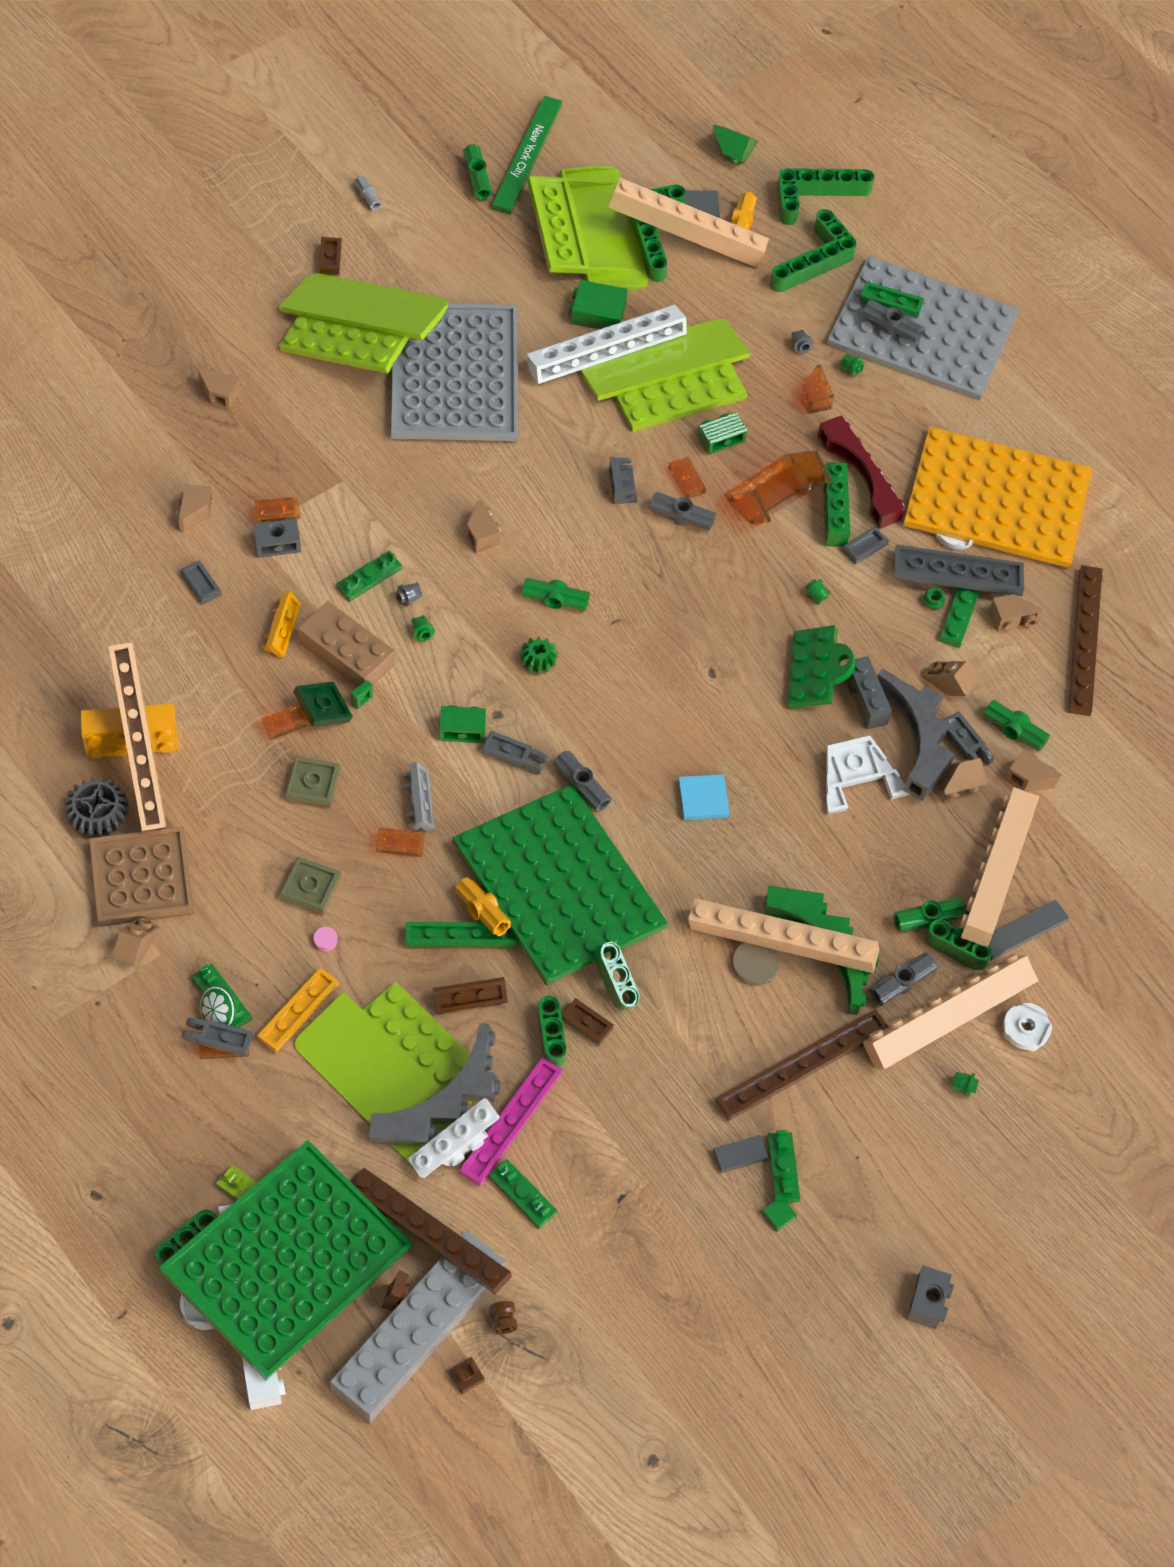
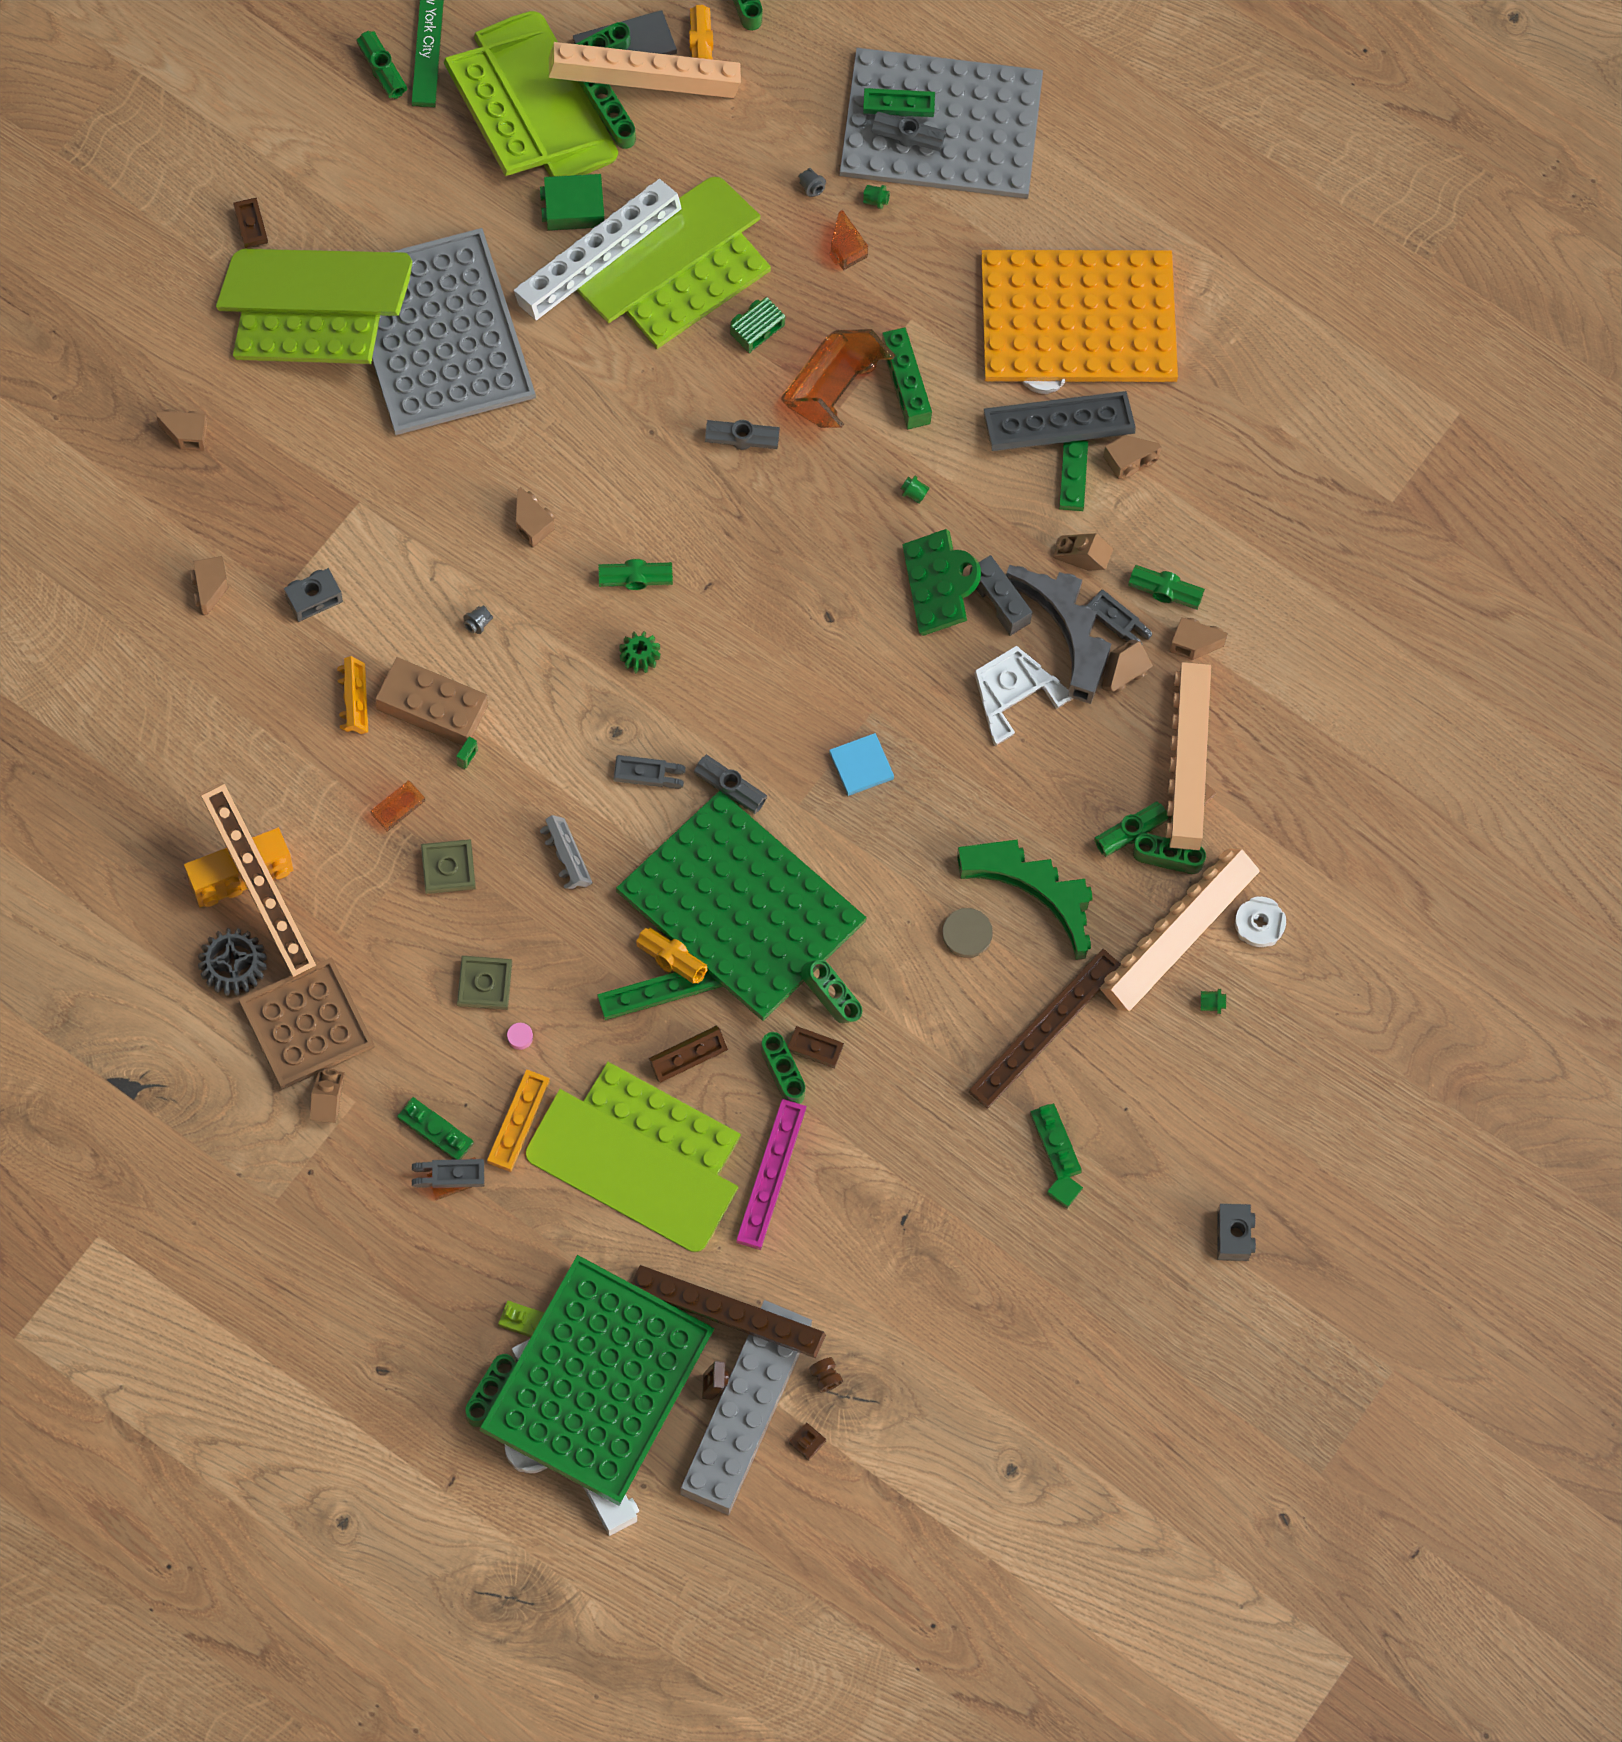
camera: 15 degrees left, 10 degrees up
(201, 582) = (248, 669): dark grey tile -> none
(218, 1005) = (438, 1142): dish -> none
(277, 509) = (301, 560): clear orange plate -> none
(322, 704) = (430, 776): dark green plate -> none
(368, 193) = (265, 127): light grey axle -> none
(369, 576) = (427, 609): green plate -> none
(400, 842) = (562, 908): clear orange plate -> none
(422, 629) = (505, 657): green hose -> none
(456, 1140) = (724, 1211): white bracket -> none
(462, 724) = (584, 755): green brick -> none
(473, 1083) = (724, 1149): flat silver arch -> none
(523, 1193) = (805, 1244): green plate -> none
(622, 481) = (665, 415): dark grey hinge -> none
(687, 478) = (734, 390): clear orange plate -> none
(740, 1154) = (1009, 1140): dark grey tile -> none
(784, 935) = (989, 898): light nougat brick -> none
(836, 251) = (801, 67): green beam -> none
(840, 440) = (889, 296): dark red arch -> none
(865, 545) = (950, 417): dark grey tile -> none
(893, 986) = (1130, 896): dark grey piece -> none
(936, 594) = (1041, 455): green plate -> none
(1027, 928) = (1234, 813): dark grey tile -> none
(1085, 641) = (1214, 463): reddish brown plate -> none

